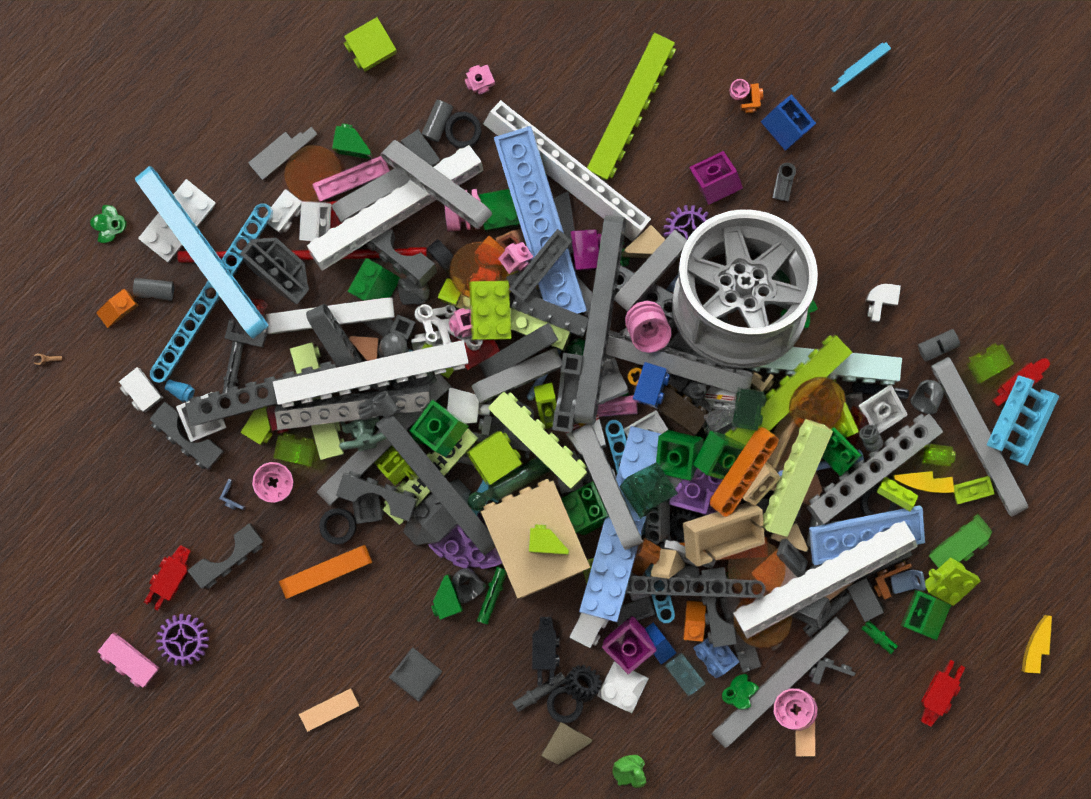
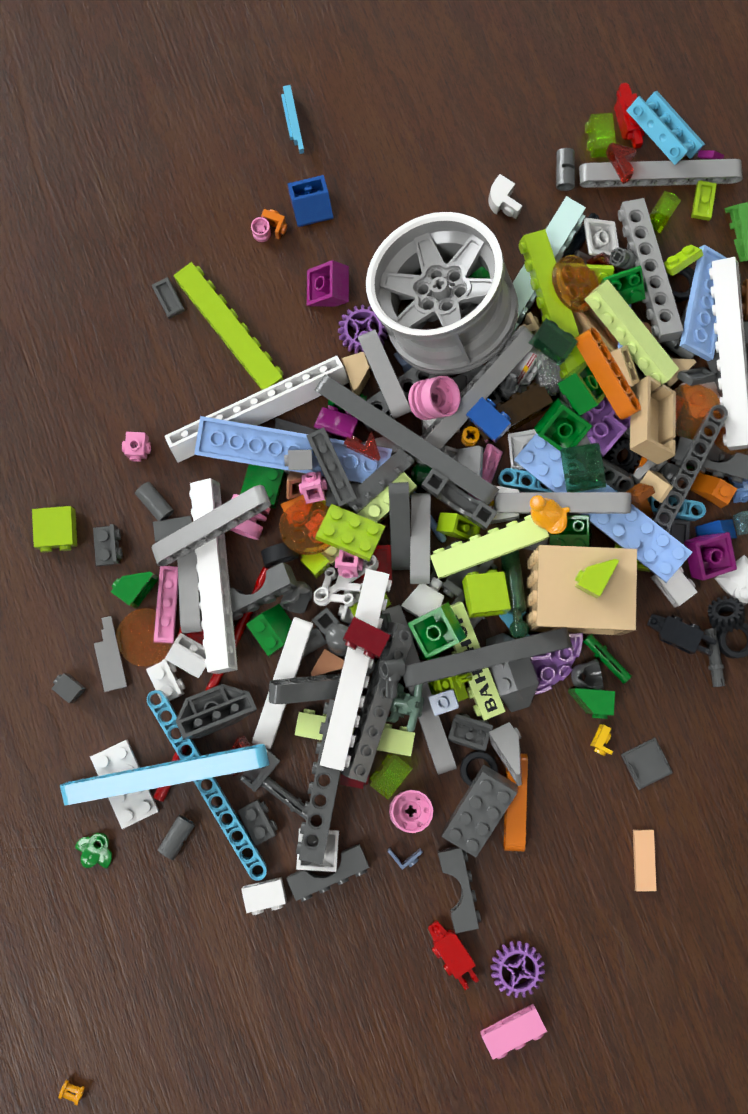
camera: 75 degrees left, 5 degrees down
(47, 359) = (190, 974): medium nougat hand -> none
(117, 308) = (176, 880): orange slope -> none
(180, 390) = (283, 857): dark azure cone -> none
(200, 353) = (257, 821): none -> dark grey bracket
(236, 129) = (68, 687): none -> dark grey brick
(258, 427) = (352, 800): lime slope -> none
(302, 542) = (480, 810): none -> dark grey brick
(369, 542) = (507, 745): none -> light grey slope
(378, 98) = (107, 545): none -> dark grey bracket
(380, 465) = (443, 702): none -> bracket
(400, 369) = (366, 638): none -> dark red brick
(400, 503) = (487, 700): dark grey arch -> none
(419, 622) = (602, 736): none -> yellow bracket
(459, 116) = (160, 483): black tyre -> none
(533, 233) = (299, 459): none -> light grey brick
(573, 291) = (368, 450): none -> clear red slope
(588, 478) = (548, 514): none -> light orange hair
(633, 36) = (168, 298): none -> dark grey tile
(783, 184) = (361, 231): dark grey piece -> none
(925, 482) = (680, 233): yellow slope -> none
(931, 404) = (607, 191): dark grey hair -> none
(969, 389) = (619, 158): none -> clear red slope
(1021, 477) = (707, 154): none -> magenta tile

